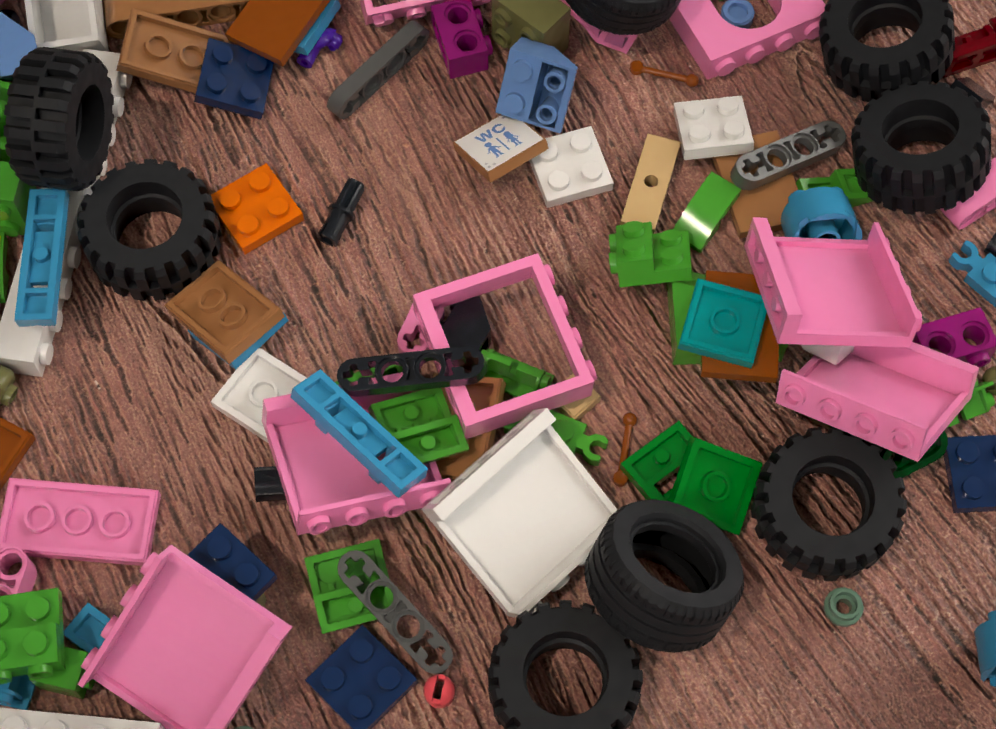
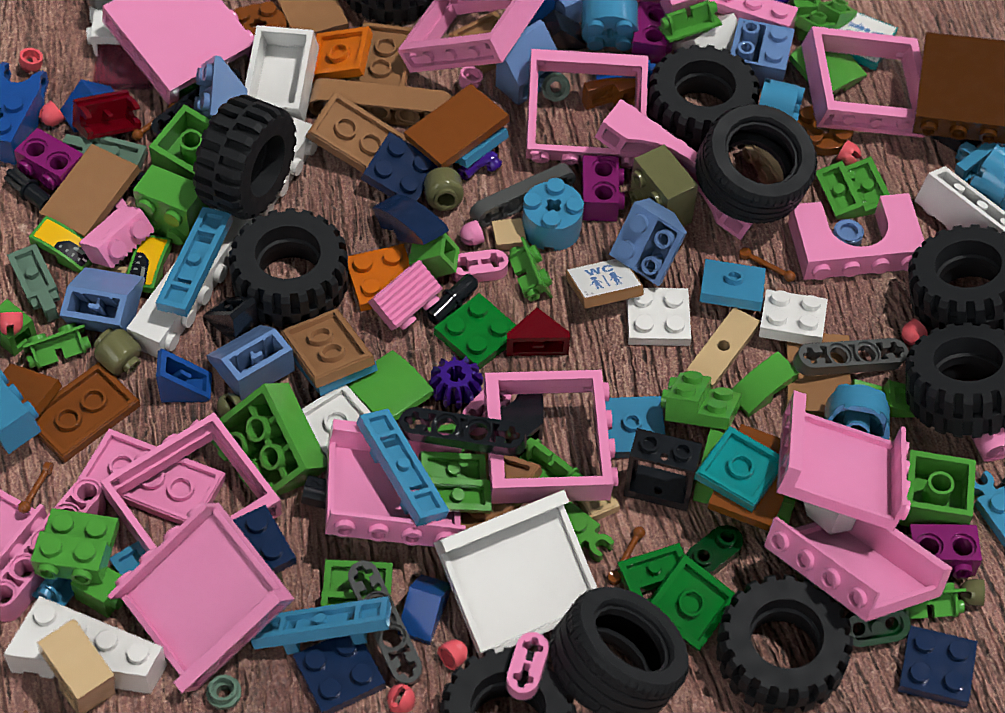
camera: 15 degrees right, 10 degrees down
(73, 396) = (181, 380): none -> blue slope
(90, 486) = (174, 449): none -> bright pink window
(106, 304) = (234, 316): none -> black slope
(131, 415) = (222, 404): none -> olive hinge
(145, 349) = (253, 360): none -> medium blue slope
(196, 441) = (275, 437): none -> bright green wedge
(266, 135) = (409, 220): none -> dark blue slope
(289, 86) = (443, 188): none -> olive head
(291, 225) = (405, 296): none -> bright pink brick
(306, 168) = (438, 255): none -> bright green brick
(311, 336) = (392, 386): none -> bright green slope
(334, 635) = (325, 622): none -> dark azure hinge
(337, 130) = (472, 234): none -> bright pink hinge
(357, 164) = (480, 265): none -> bright pink beam
(374, 295) = (456, 382): none -> dark purple gear
(377, 118) = (508, 233): none -> tan tile
(381, 241) = (475, 331): none -> green plate
(407, 144) = (527, 260): none -> bright green hinge
(419, 83) = (552, 215): none -> dark azure brick
(430, 577) = (424, 607): none -> blue slope
(450, 228) = (537, 336): none -> dark red slope
(479, 621) = (453, 653): none -> coral hinge
(582, 621) = (534, 668): none -> bright pink beam
(591, 299) = (630, 414): none -> dark azure plate
(620, 348) = (644, 480): none -> black window
(637, 109) = (732, 285): none -> dark azure plate
(717, 415) = (716, 550): none -> dark green plate
(842, 107) = (913, 331): none -> coral hinge
(936, 276) = (940, 489): none -> bright green brick

